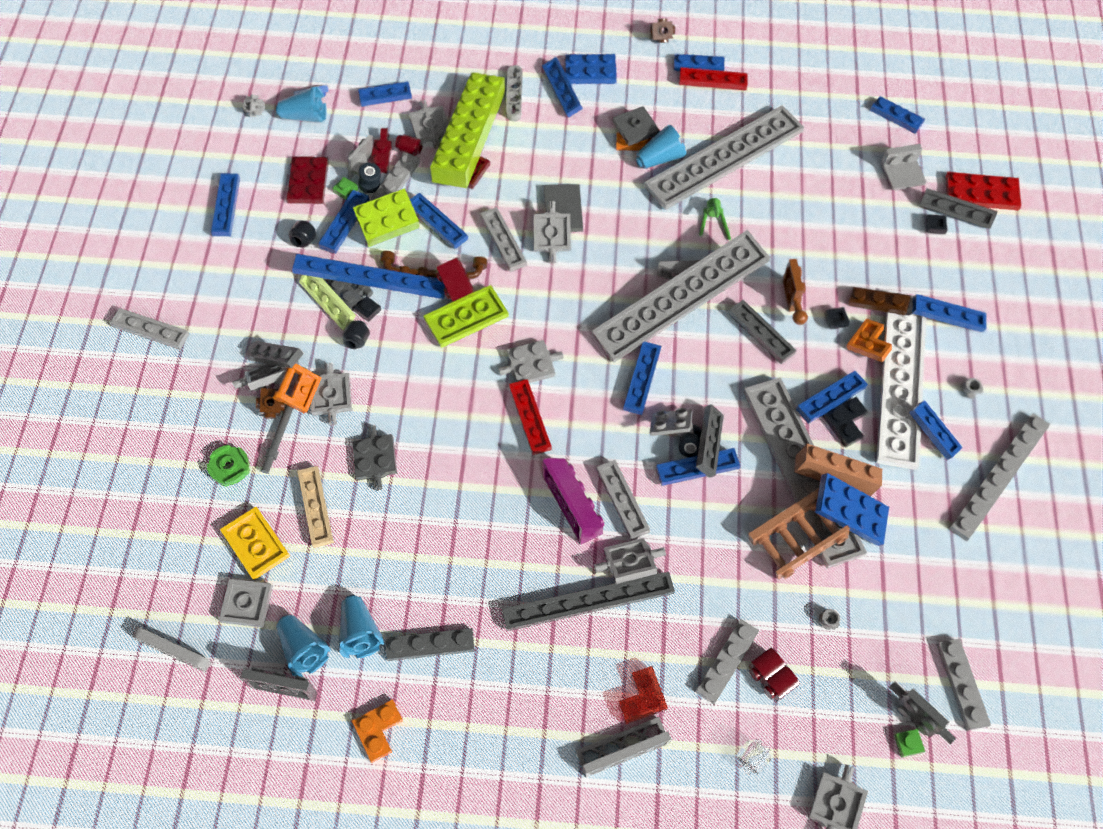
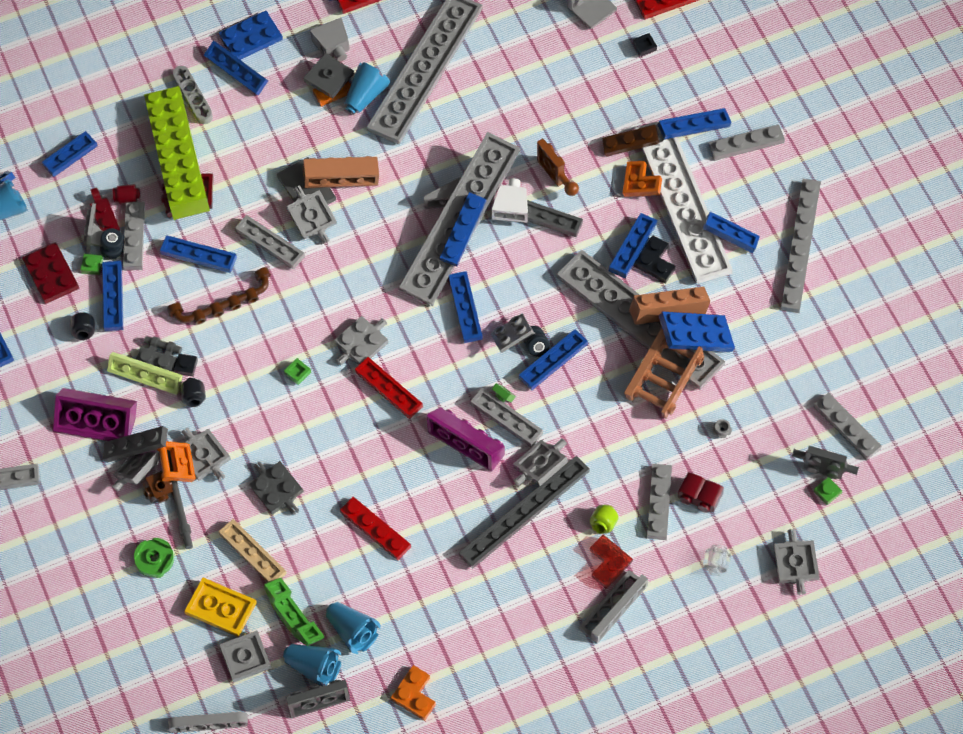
camera: 25 degrees left, 0 degrees up
(261, 312) = (93, 415): none -> magenta slope
(311, 584) = (290, 614): none -> bright green slope
(368, 276) = (173, 334): blue plate -> none
(386, 217) = (153, 273): lime brick -> none
(429, 123) = (132, 164): light grey plate -> none
(429, 644) = (416, 610): dark grey plate -> none
(440, 543) = (375, 528): none -> red plate
(454, 279) = (253, 300): dark red brick -> none
(458, 361) = (297, 371): none -> bright green plate
(466, 316) = (279, 328): lime plate -> none
(598, 208) = (341, 172): none -> nougat brick
(632, 474) = (503, 393): none -> bright green plate
(656, 98) = (331, 39): none -> light grey torso
(661, 650) = (604, 519): none -> lime head
(677, 306) = (463, 229): none -> blue plate
(710, 441) = (552, 332): dark grey plate -> none
(714, 210) = (444, 123): bright green plant -> none
(736, 303) = (511, 203): none -> white torso
(837, 318) = (602, 173): black plate -> none
(958, 208) = (656, 20): dark grey plate -> none
(973, 383) = (743, 176): light grey plate -> none
(992, 354) = (746, 142): none -> light grey plate

